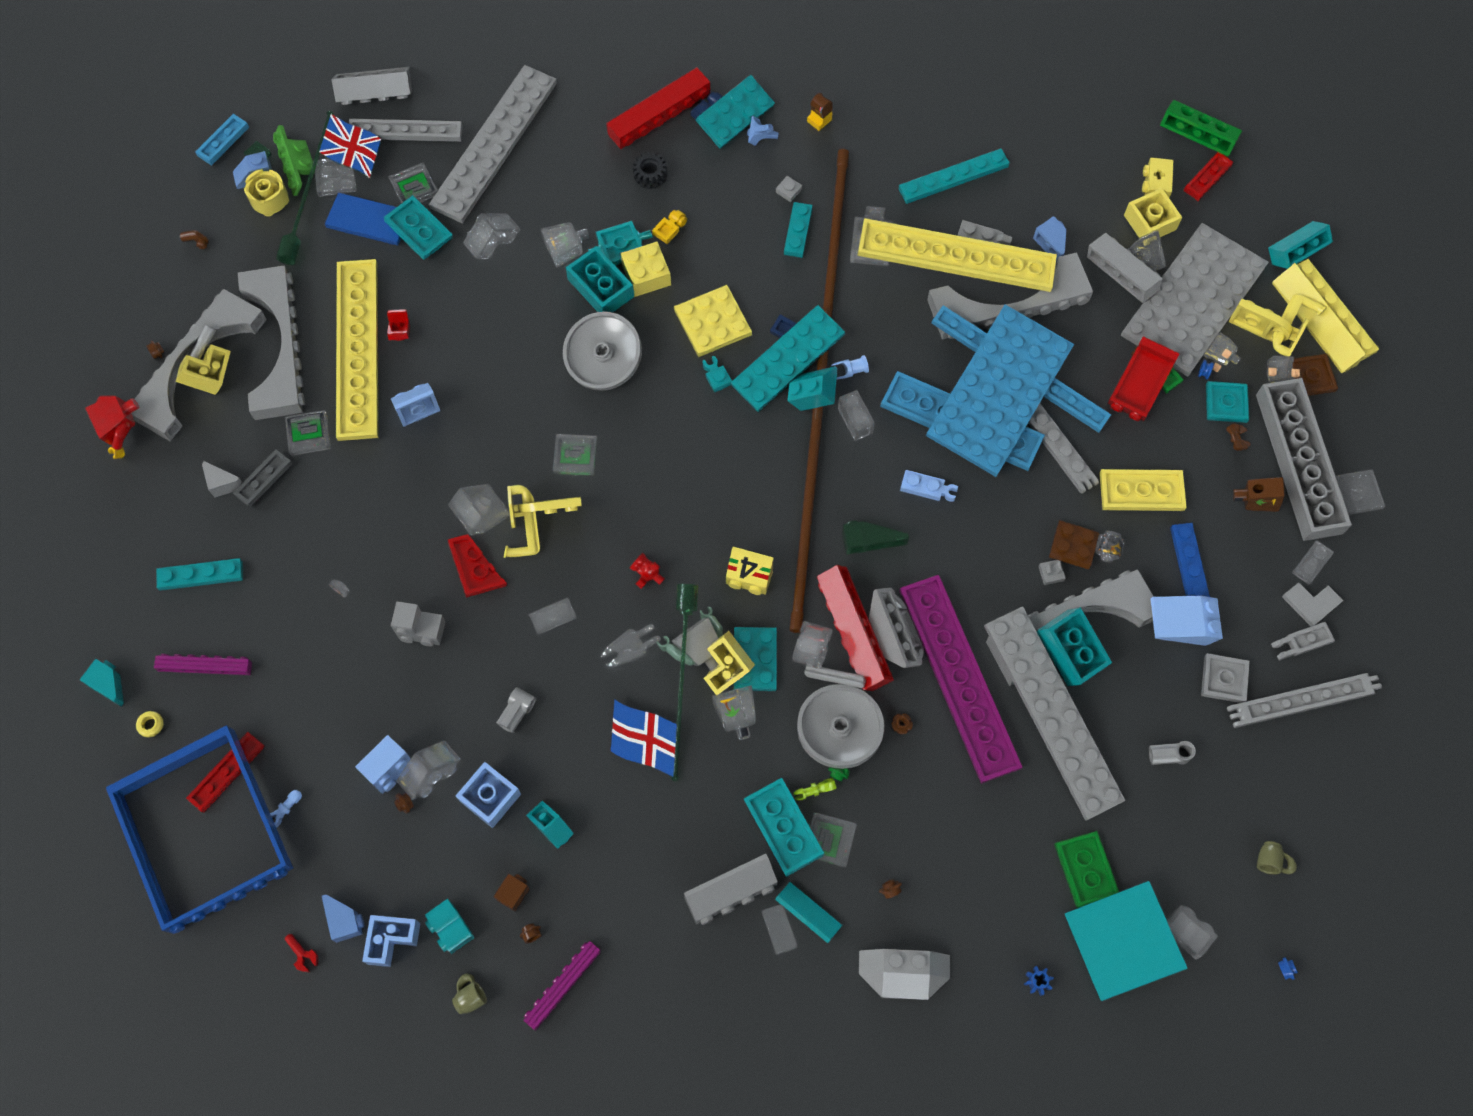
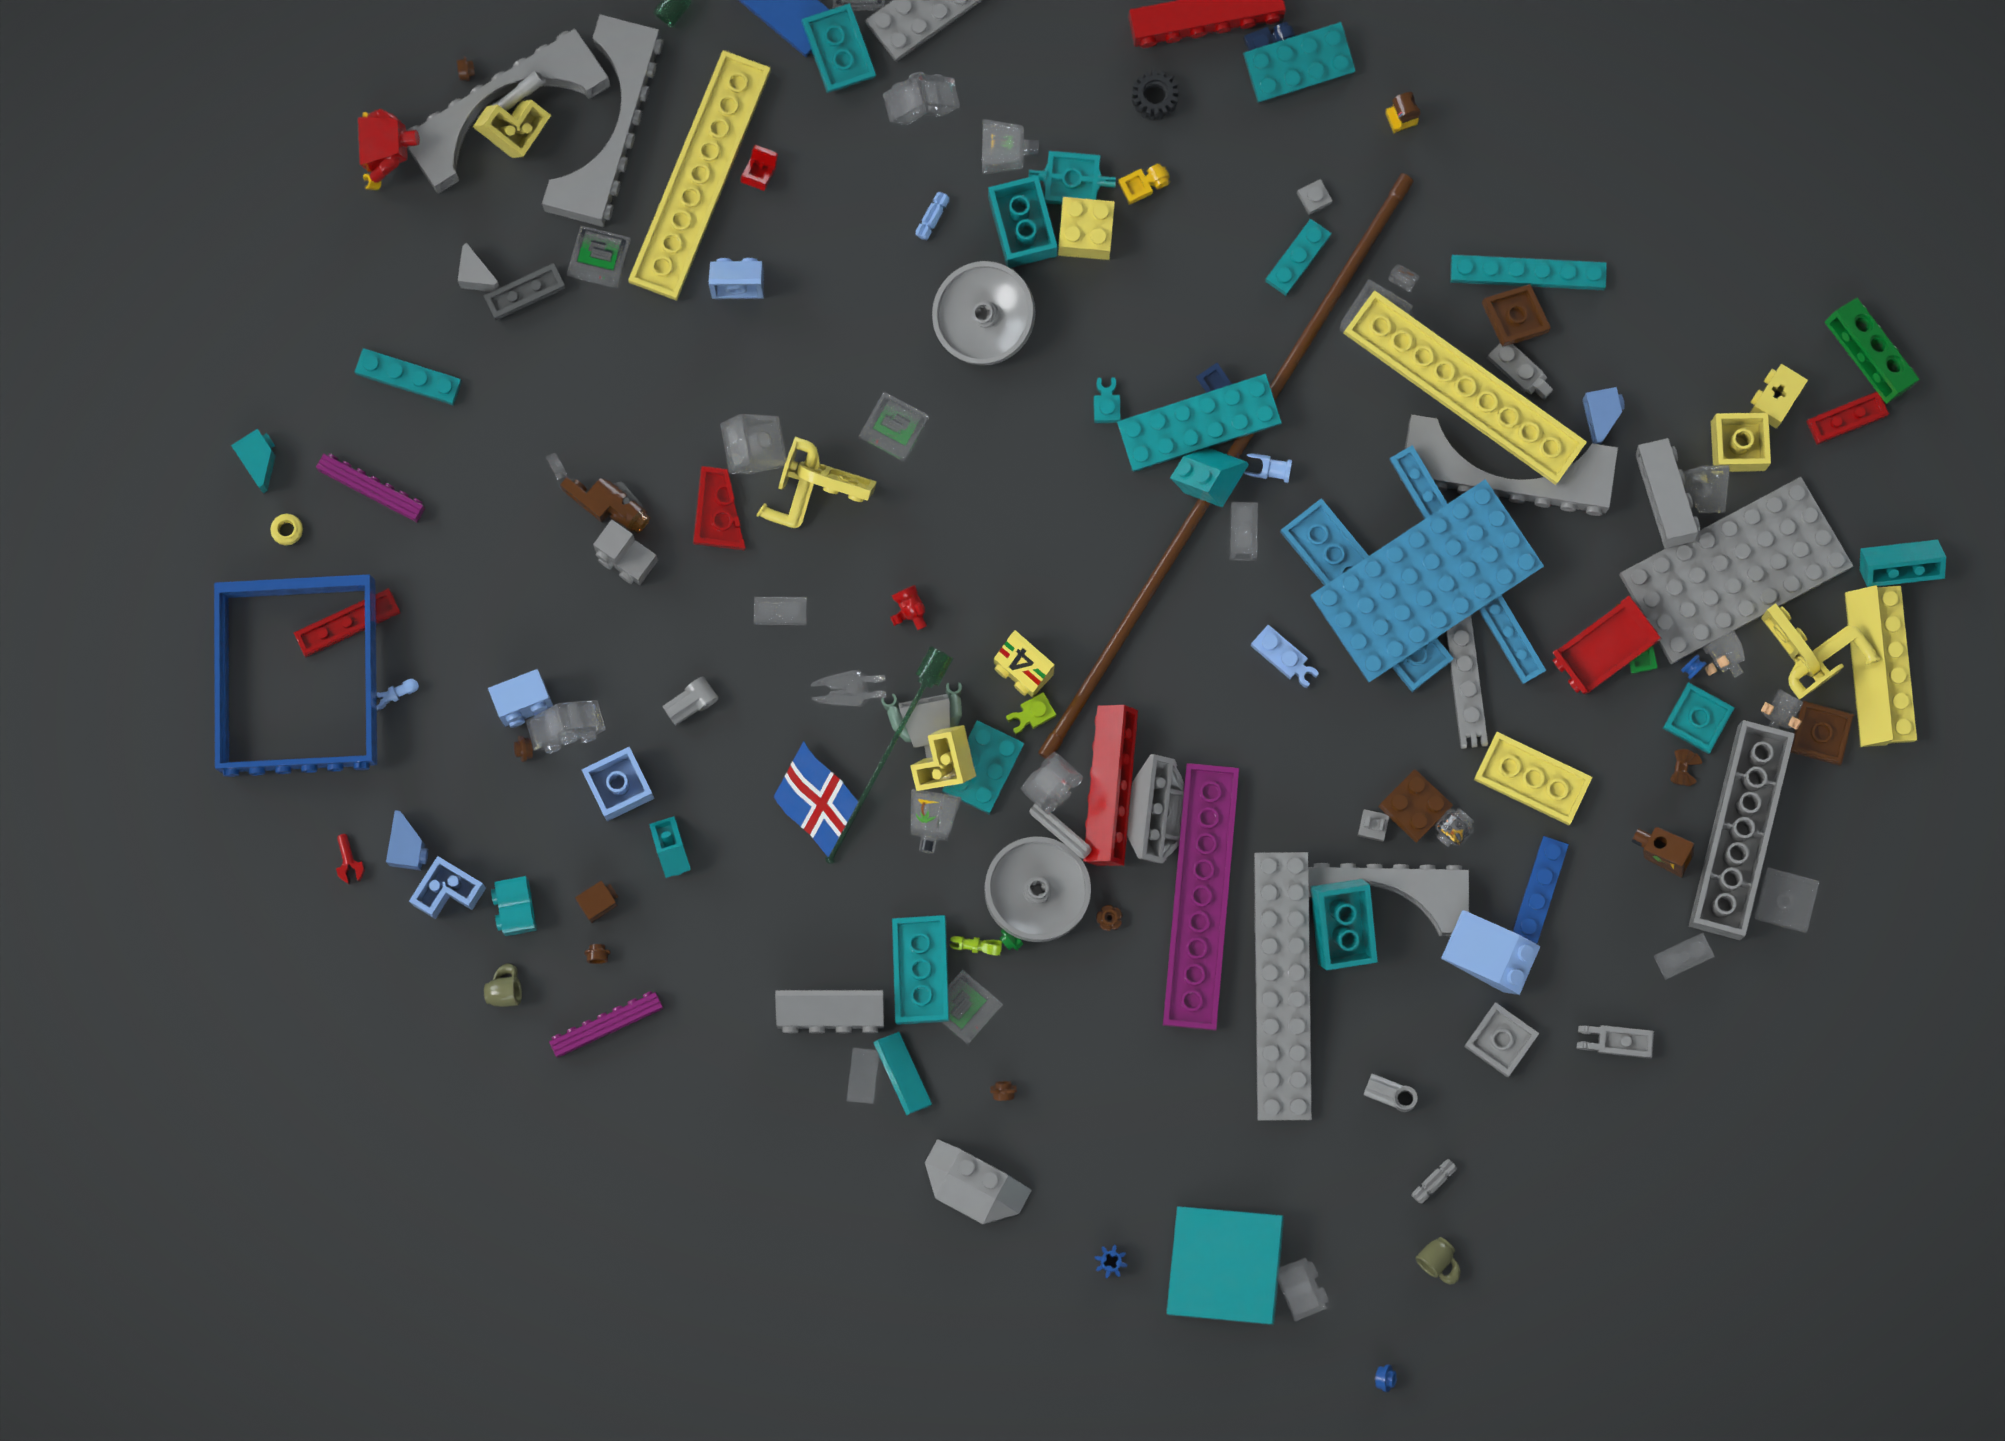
camera: 25 degrees right, 10 degrees up
(386, 594) = (609, 499): none -> reddish brown plate
(535, 306) = (932, 215): none -> light blue axle
(712, 321) = (1136, 330): light yellow plate -> none
(758, 131) = (1316, 102): medium blue piece -> none
(772, 604) = (1035, 711): none -> lime plate
(866, 537) = (1180, 685): clear green slope -> none
(962, 202) = (1516, 315): none -> reddish brown plate
(1086, 869) = (1228, 1171): green tile -> none
(1236, 803) = (1434, 1181): none -> light grey axle
(1304, 699) = (1577, 1105): light grey hinge -> none
(1312, 608) = (1651, 1009): light grey tile -> none

